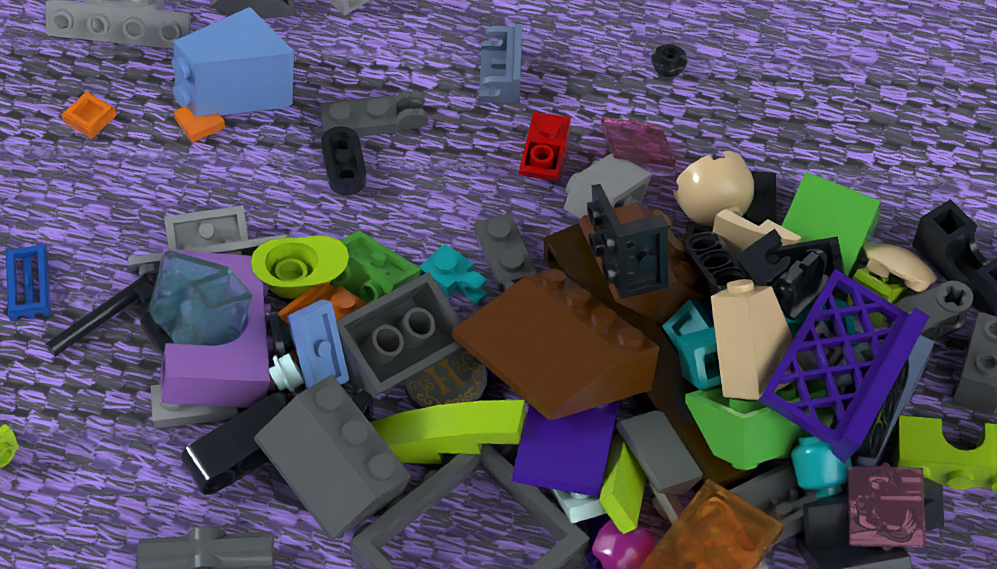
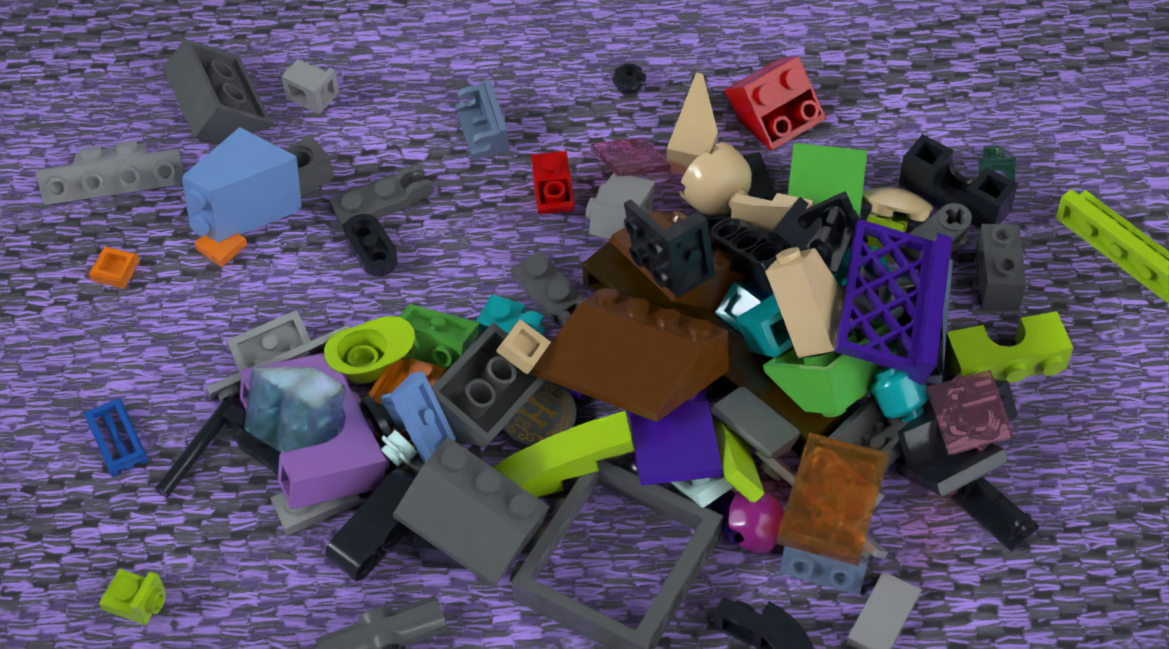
camera: 15 degrees left, 0 degrees up
(311, 63) = (312, 164): none -> dark grey brick
(448, 305) = (523, 346): none -> tan plate
(714, 128) = (694, 129): none -> tan slope
(812, 125) = (776, 102): none -> red slope

